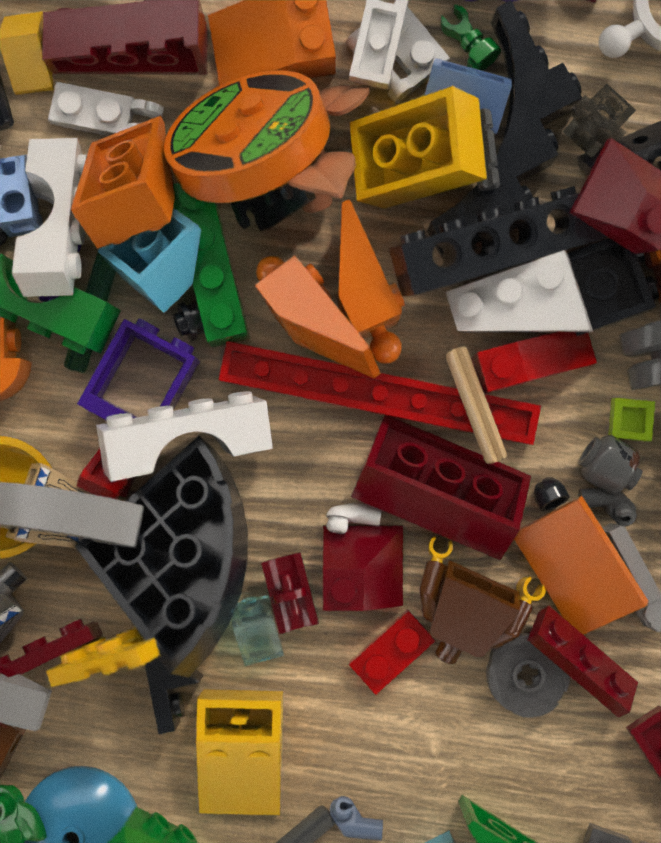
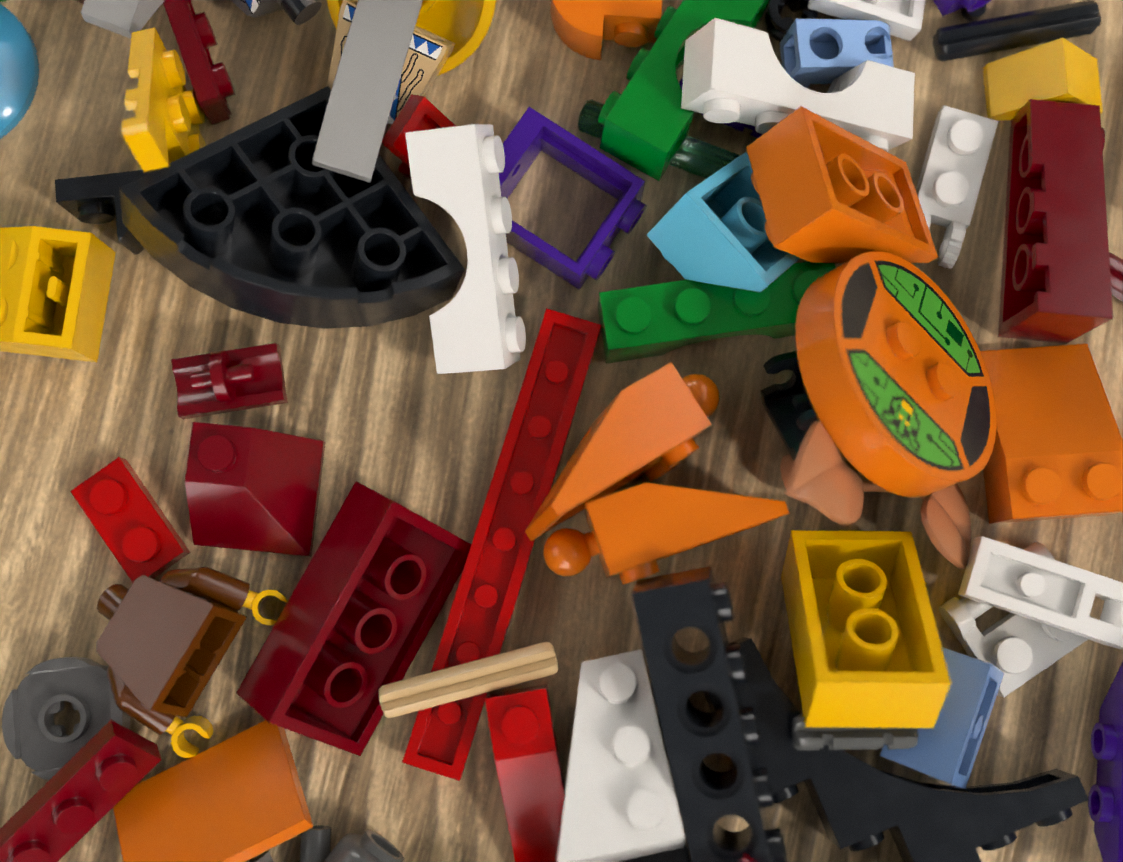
camera: 95 degrees right, 5 degrees down
(188, 321) = (636, 272): black plate -> none
(256, 630) = (184, 329): clear light blue bracket -> none
(352, 512) = (337, 482): white arm -> none
(482, 52) = (1010, 747): green piece -> none
(550, 493) = (328, 781): black hinge -> none

